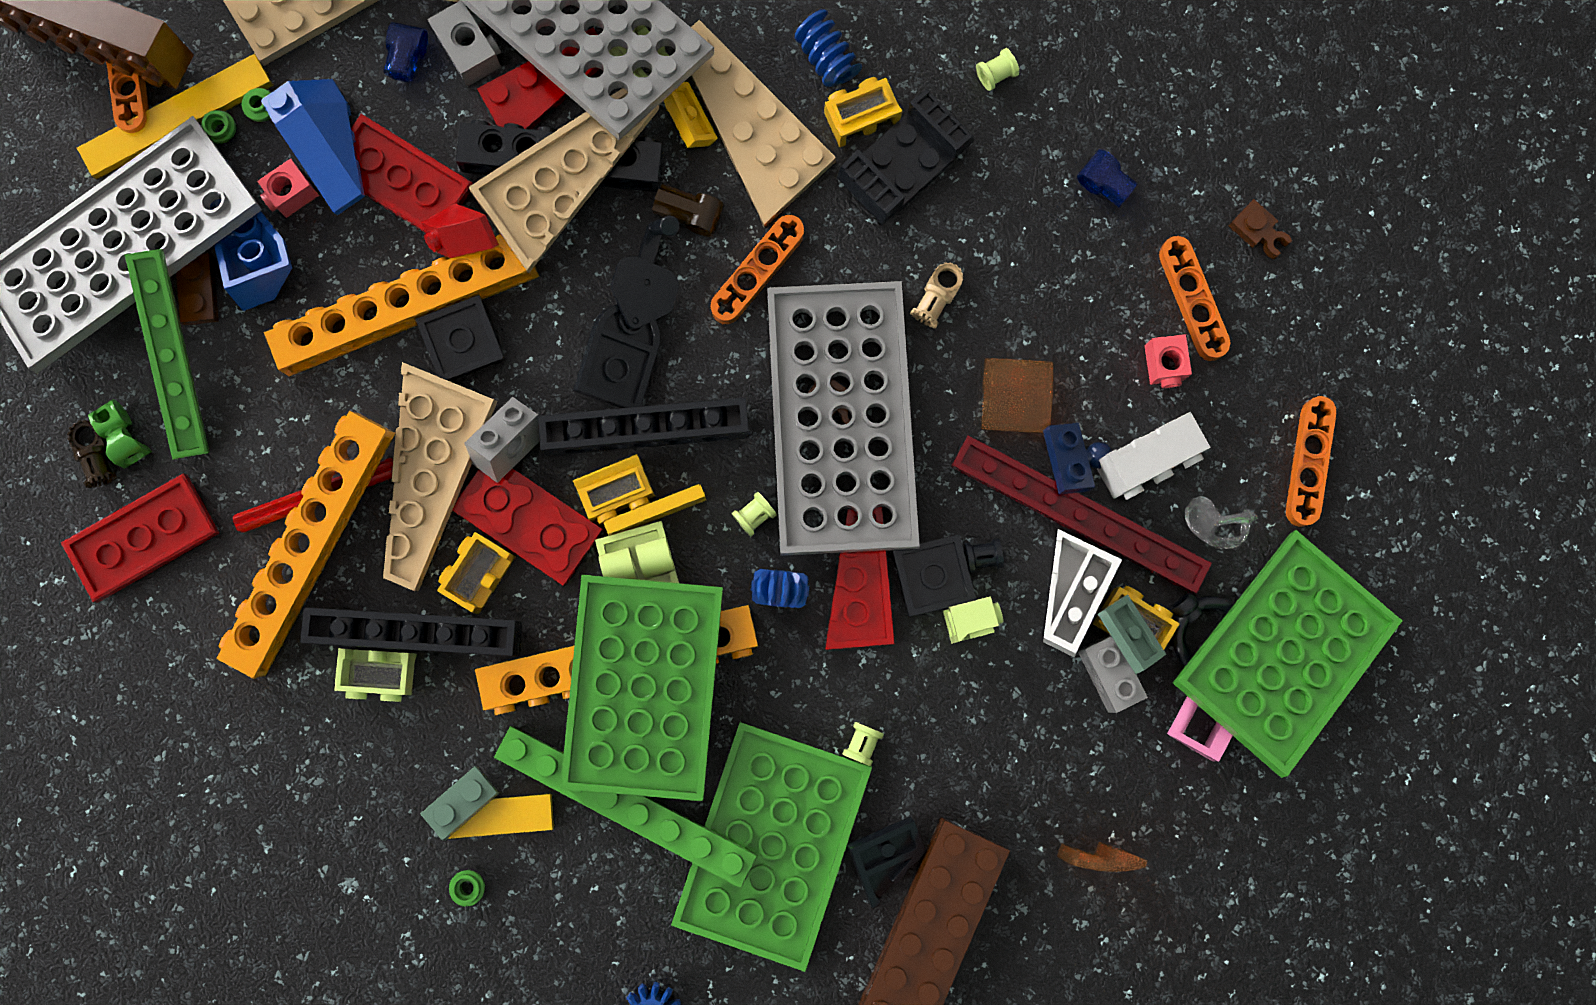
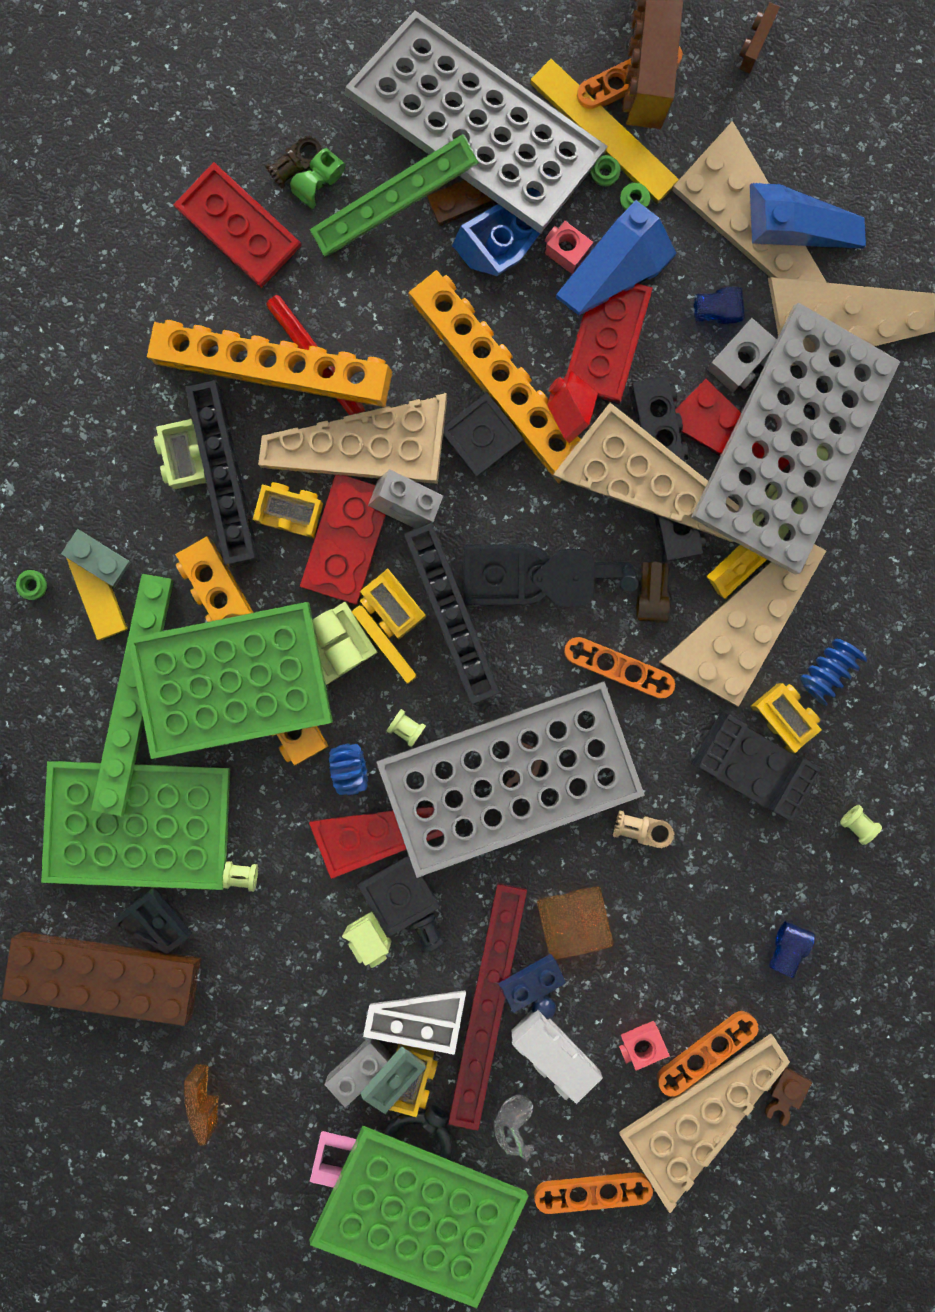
camera: 75 degrees right, 5 degrees up
(1266, 332) = (693, 1127): none -> tan wing

